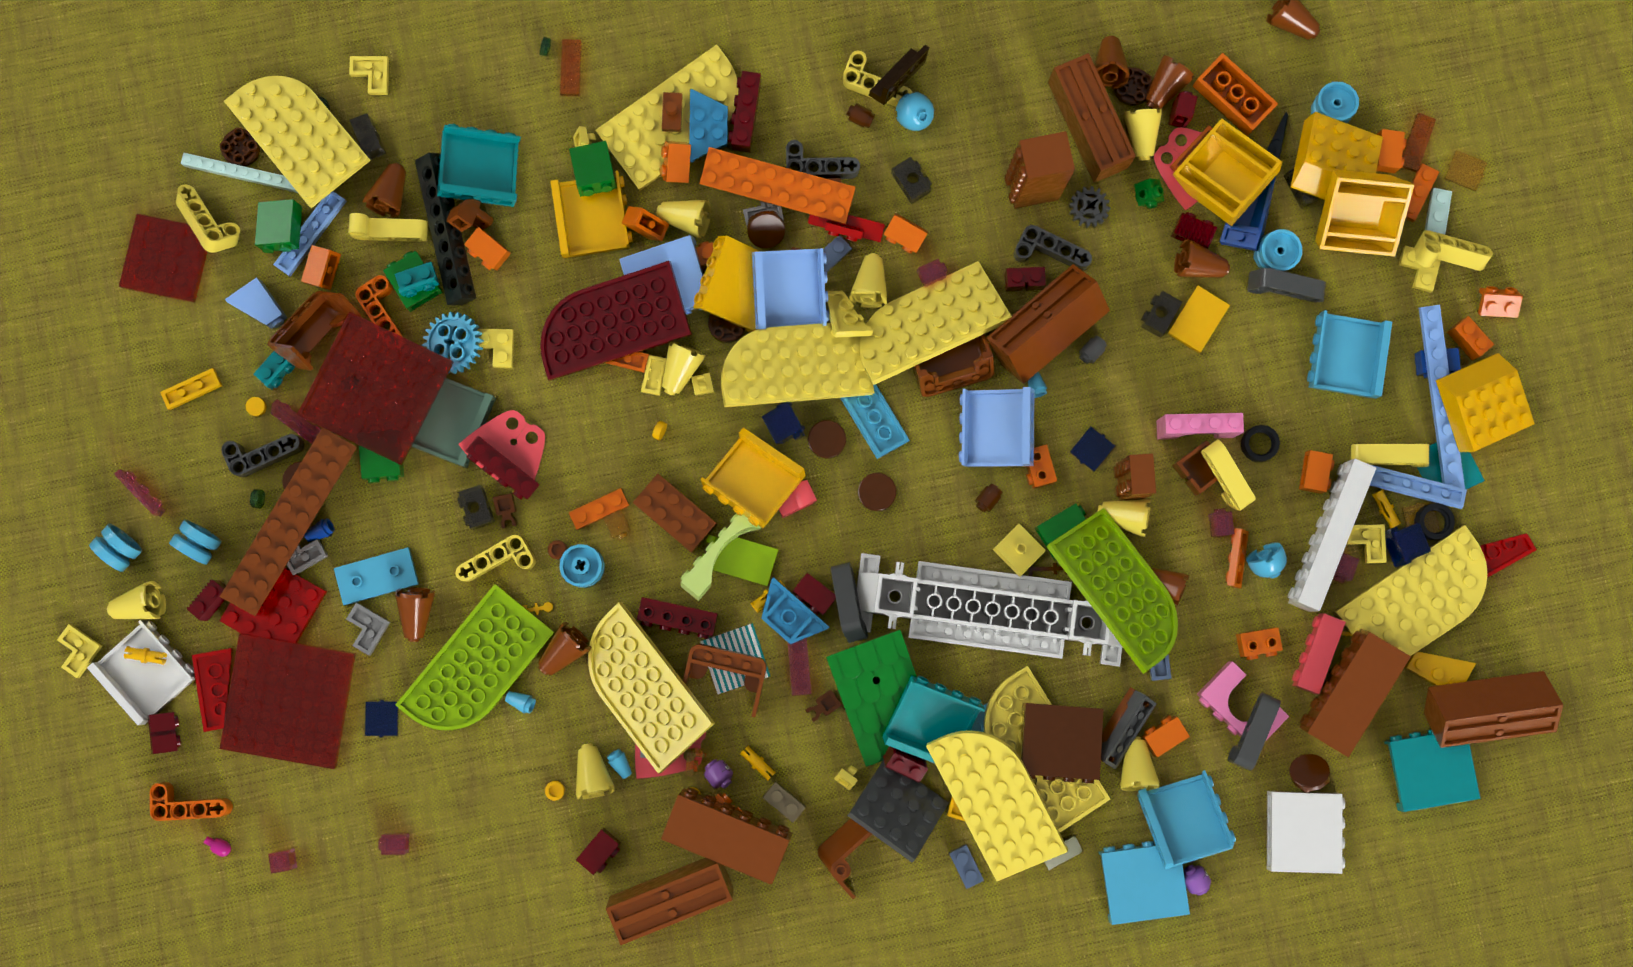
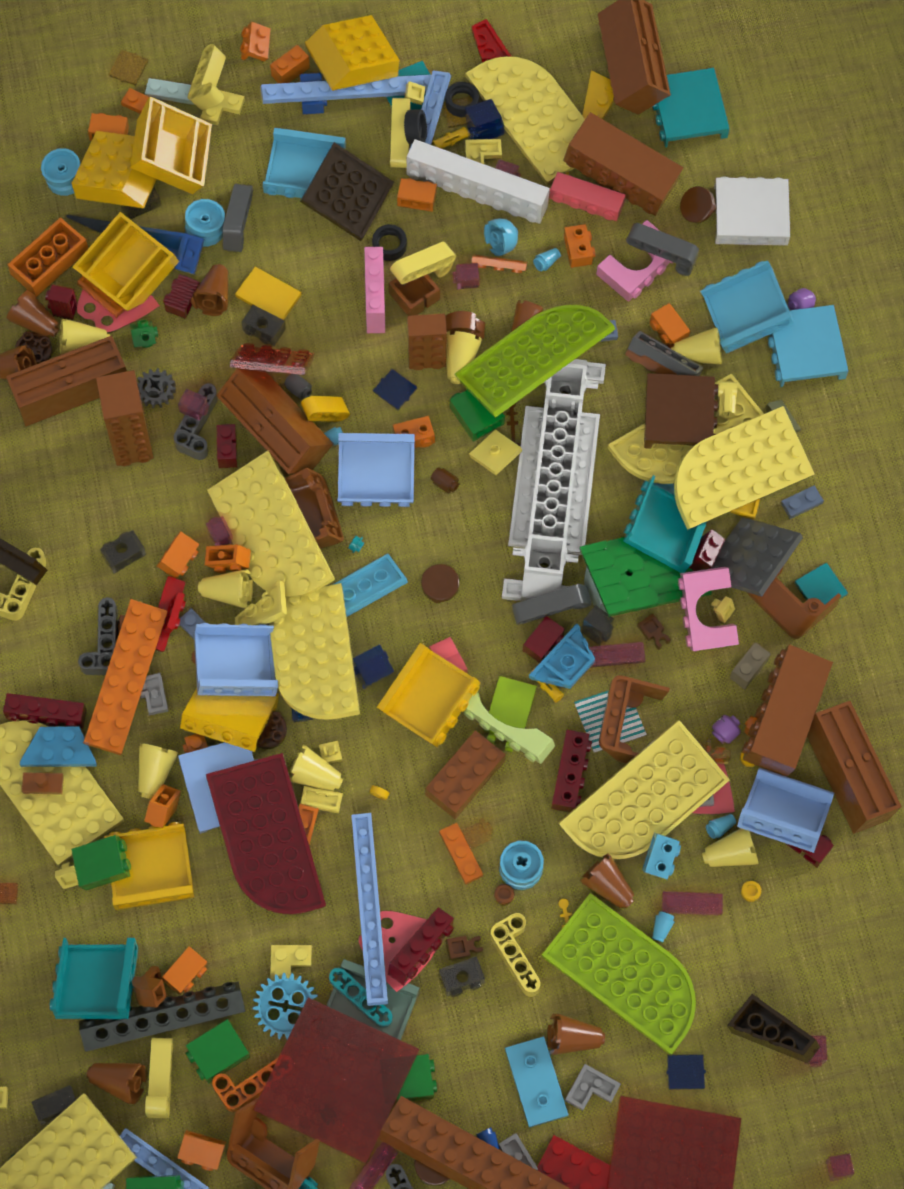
camera: 90 degrees left, 15 degrees down
(413, 798) = (770, 1029): none -> dark brown wedge
(417, 279) = (218, 1041): teal bracket -> none
(460, 414) = (360, 998): none -> teal beam
(540, 419) = (369, 909): none -> light blue plate
(544, 732) = (692, 903): none -> clear pink plate
(587, 702) = (661, 856): none -> medium azure brick
(626, 828) = (786, 810): none -> light blue panel
(676, 161) = (97, 776): orange brick -> none
(757, 763) = (713, 693): yellow pin -> none
(765, 229) = (170, 689): reddish brown tile -> none
(825, 647) = (598, 625): none -> clear smoke brick
(827, 439) = (387, 630): reddish brown tile -> none
(860, 115) = (53, 600): reddish brown brick -> none
(863, 748) = (693, 586): none -> bright pink arch
(871, 880) = (820, 584): none -> teal tile
(900, 280) = (227, 558): none -> orange brick
(915, 111) = (53, 545): medium azure cylinder -> none
(919, 408) = (356, 544): none -> teal plate
(1063, 375) = (325, 408): none -> yellow beam
(1065, 242) = (193, 404): none -> clear pink brick
(1077, 792) = (727, 396): none -> light yellow piece
(1114, 320) = (272, 359): none -> clear red plate
(1162, 519) = (465, 322): none -> dark orange brick
(1243, 608) = (546, 259): none -> medium azure cone
(1317, 398) = (347, 191): none -> dark brown tile
(1394, 469) = (415, 126): none -> black tyre
(1417, 142) = (95, 104): clear orange tile -> none
(1439, 470) = (415, 92): none -> light yellow tile

